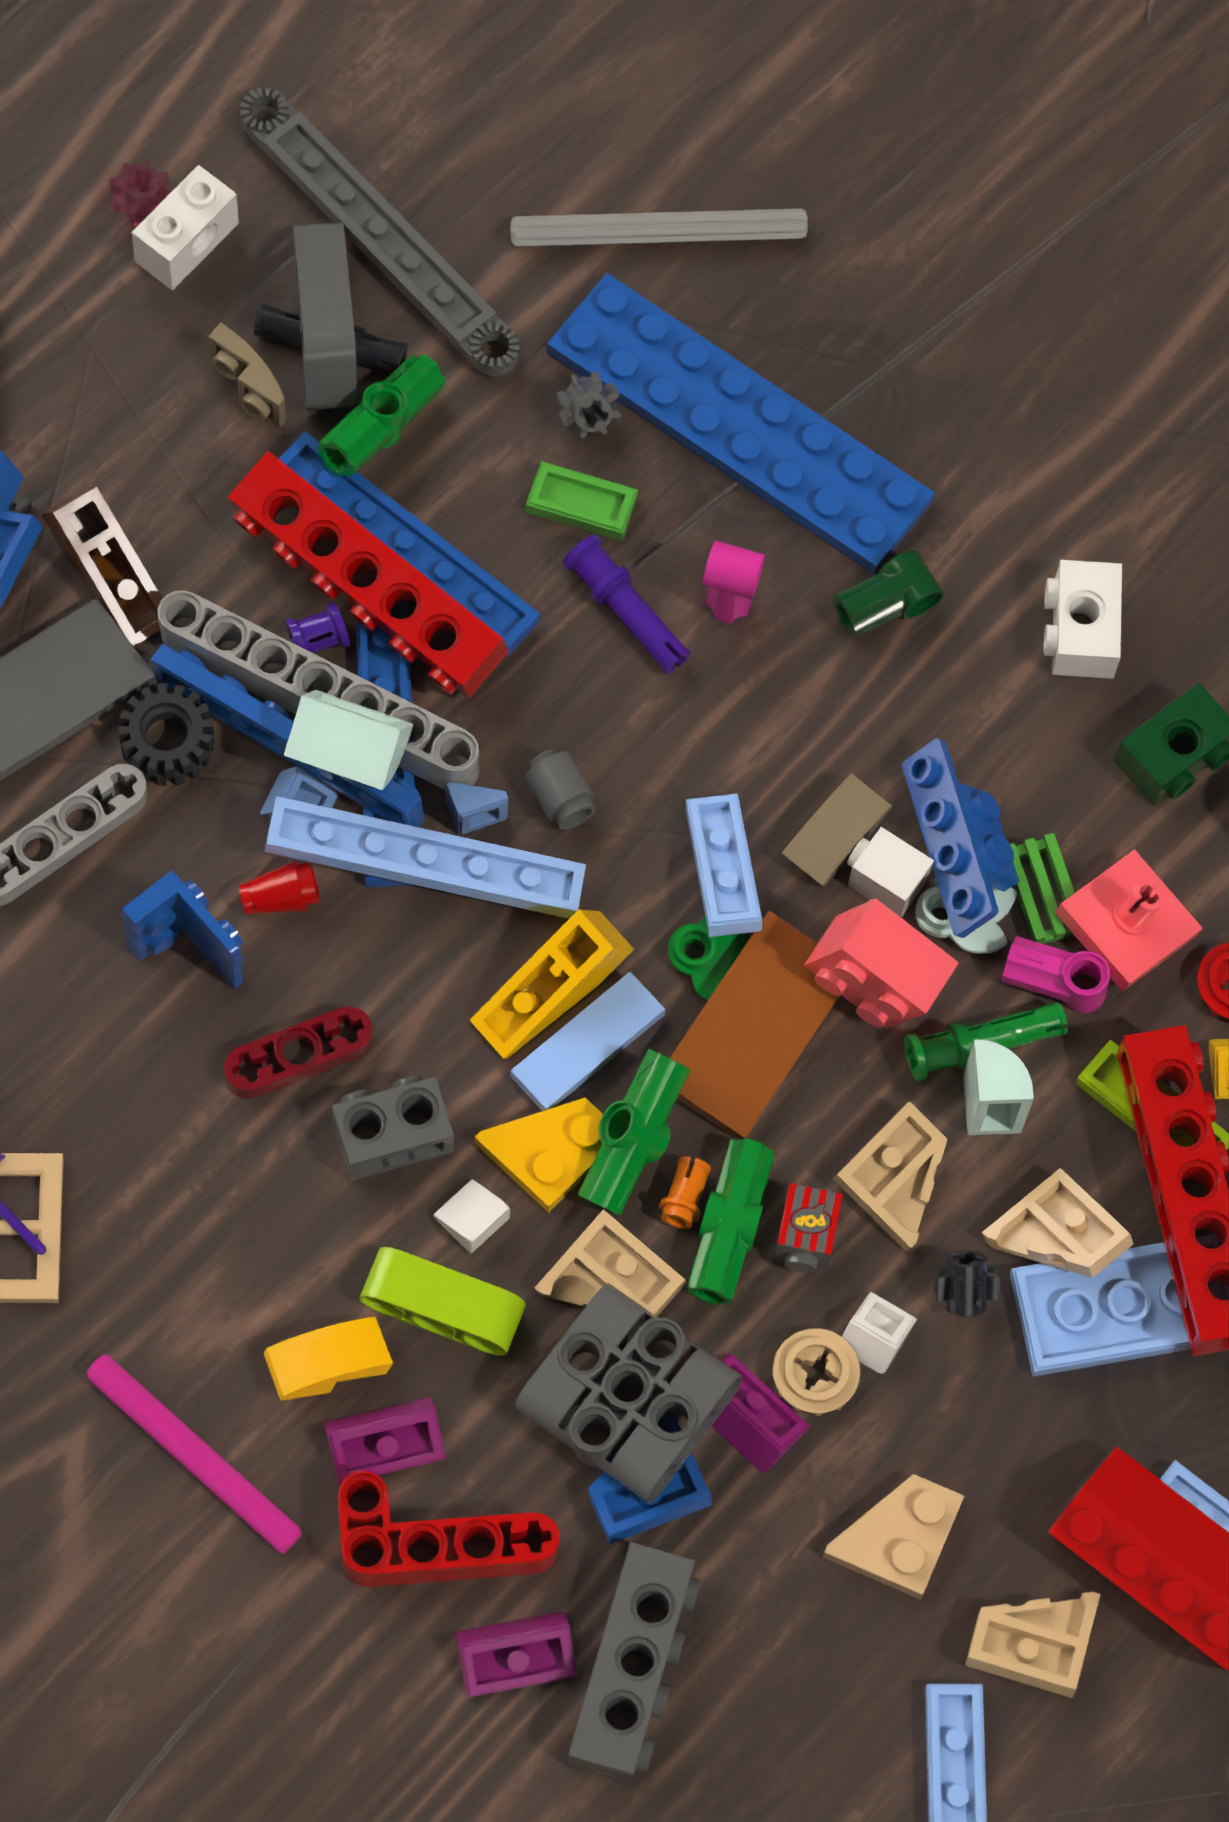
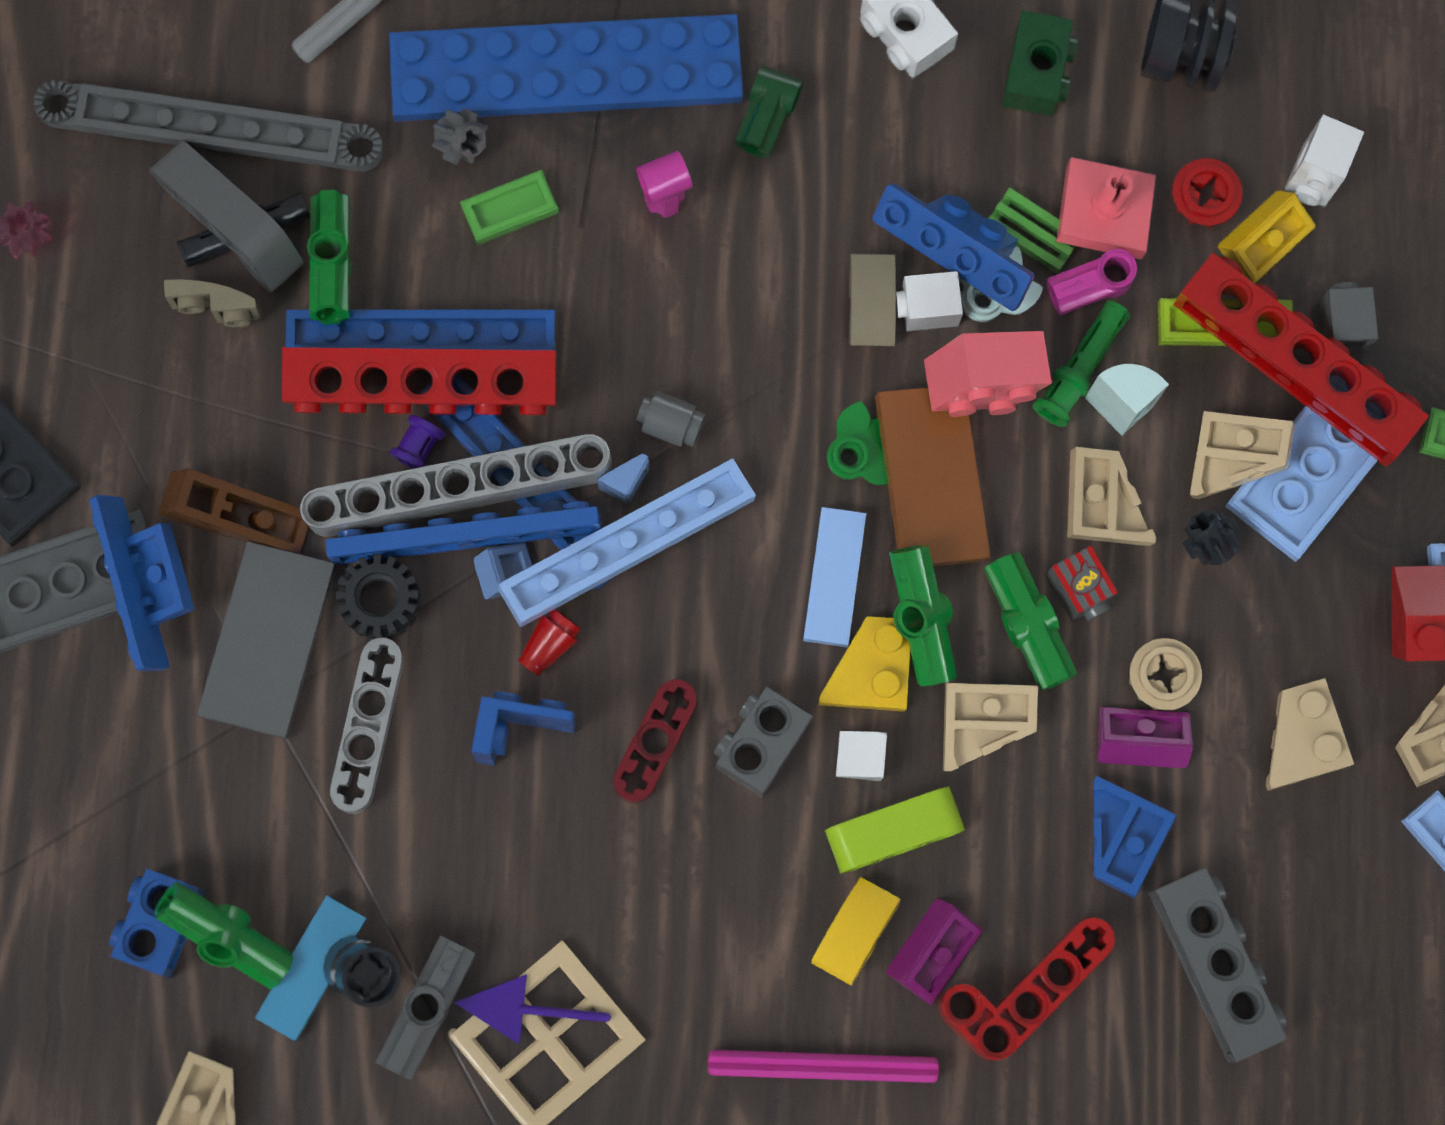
camera: 40 degrees left, 10 degrees up
(185, 227) = (76, 230): white brick -> none
(347, 739) = (515, 506): light aqua brick -> none
(516, 1654) = (1136, 1018): magenta slope -> none
(552, 981) = (779, 557): yellow slope -> none
(573, 1400) = (1115, 756): dark grey connector -> none
(612, 587) = (583, 252): dark purple pin -> none
(681, 1205) = (984, 628): orange pin -> none
(723, 865) = (821, 384): light blue tile -> none
(878, 1332) = (1179, 614): white slope -> none

